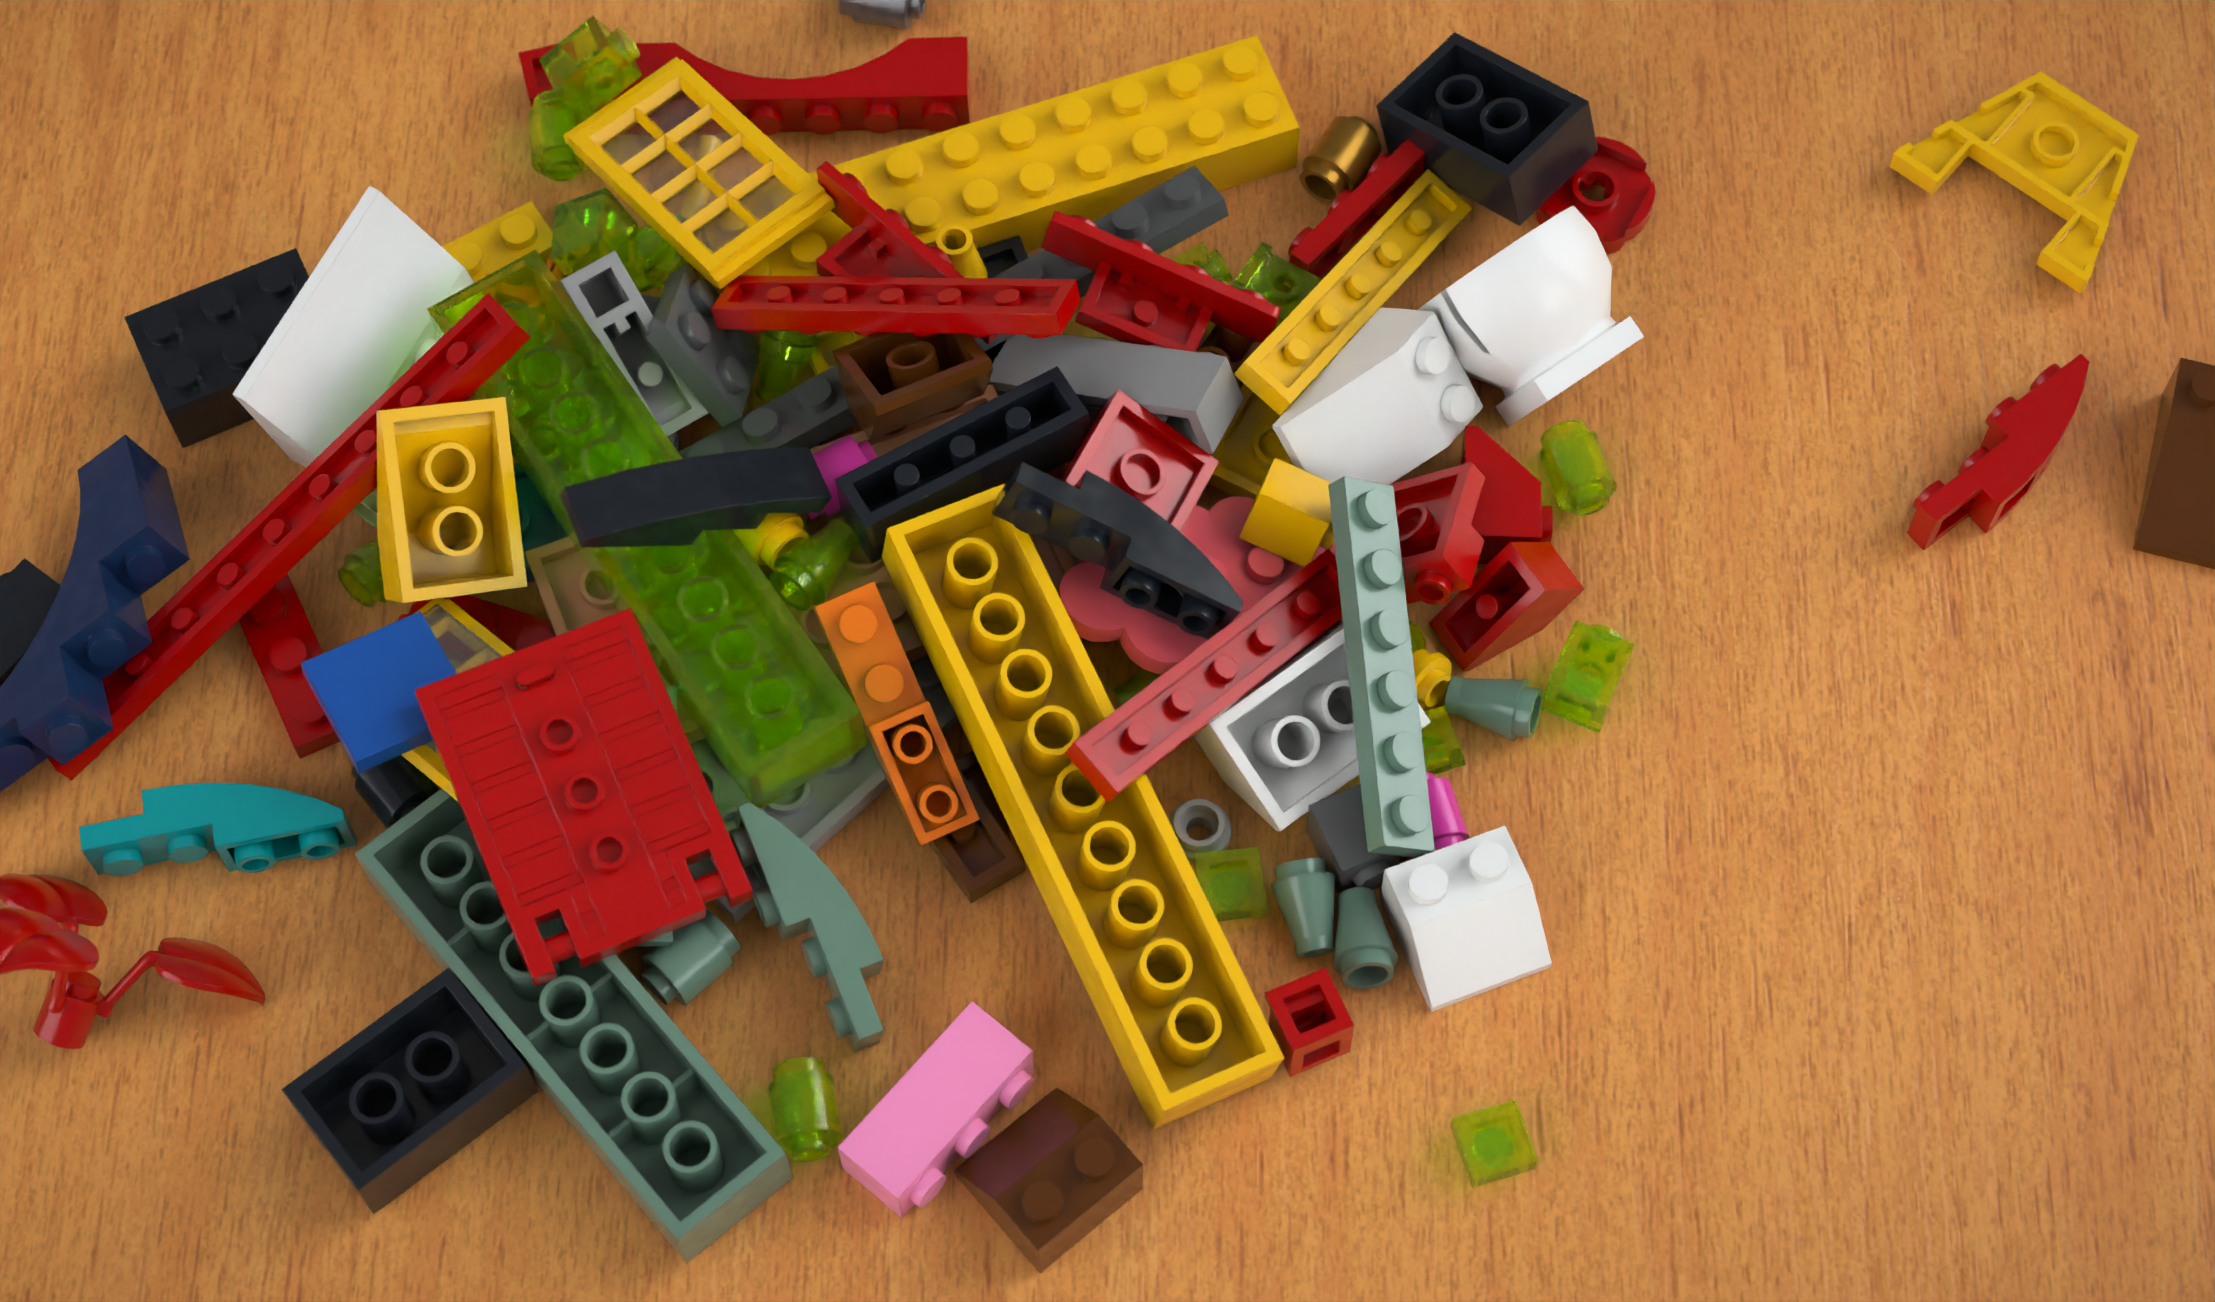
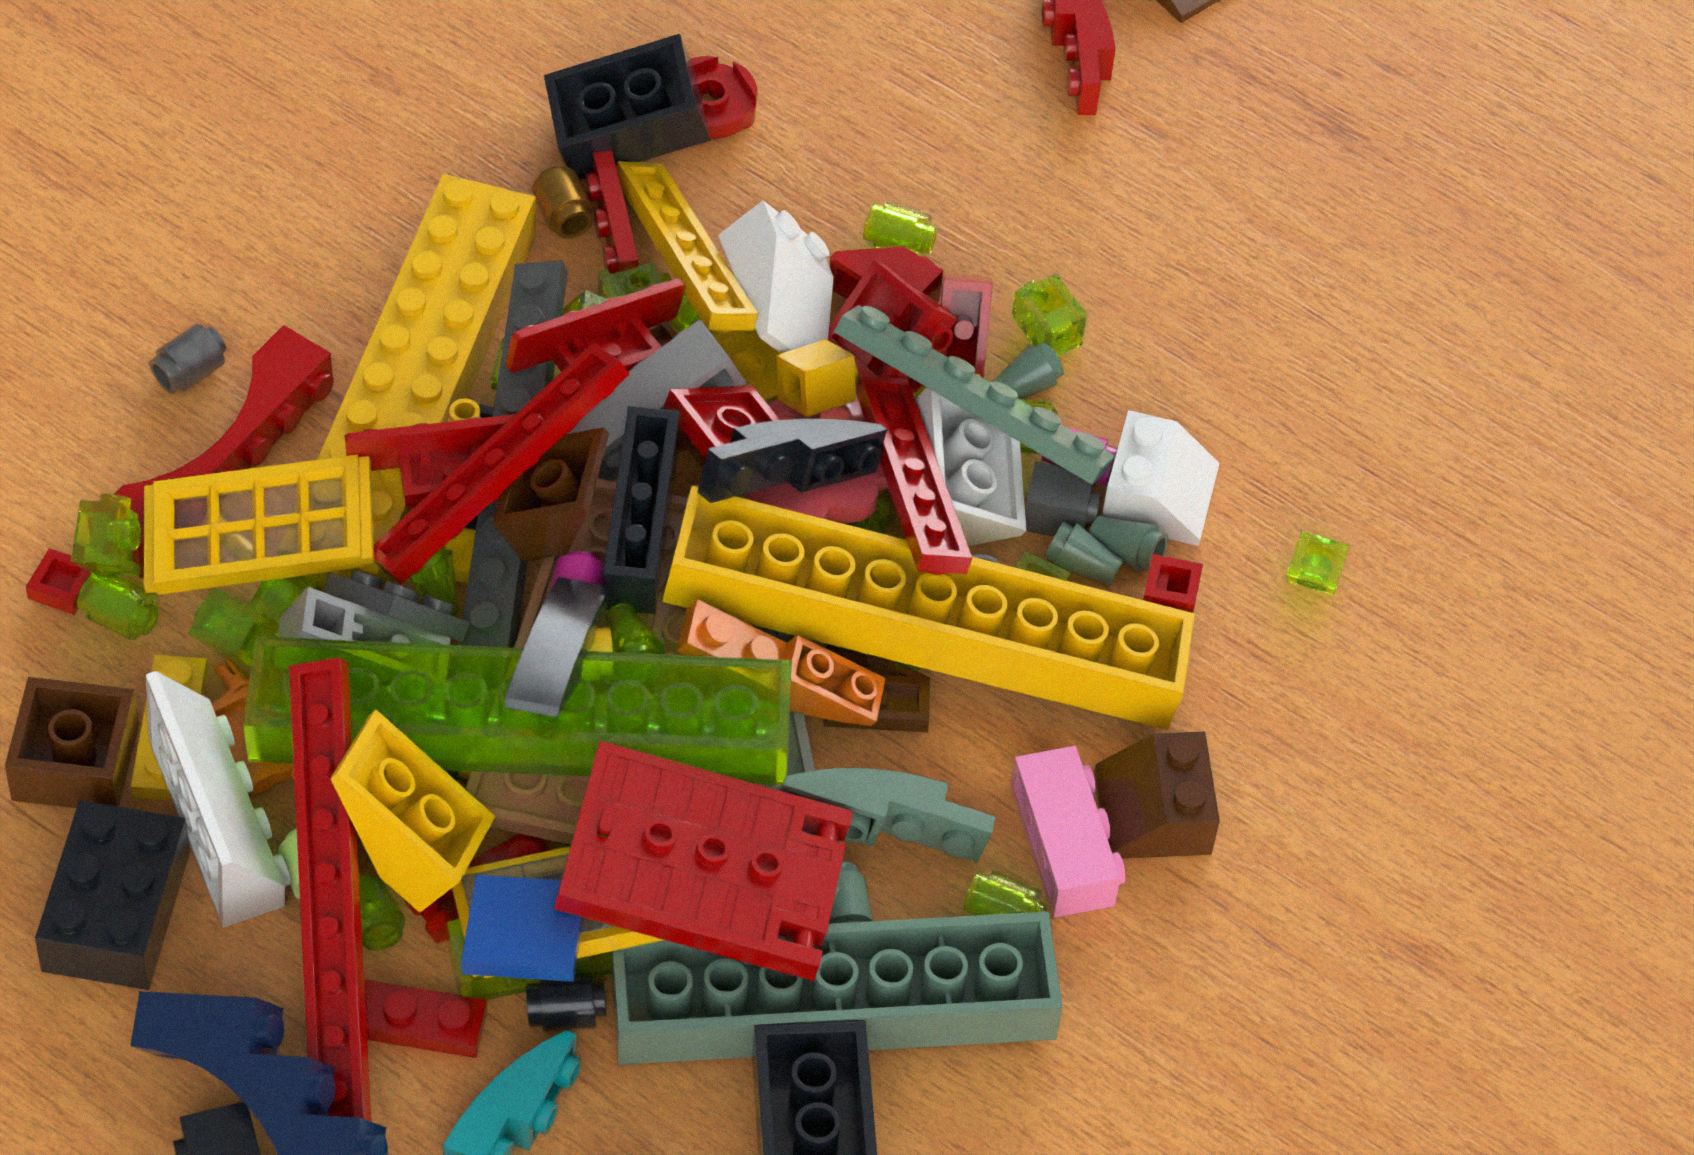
camera: 60 degrees left, 10 degrees down
(337, 176) = (71, 743): none -> reddish brown brick
(1536, 314) = (794, 160): white plate -> none

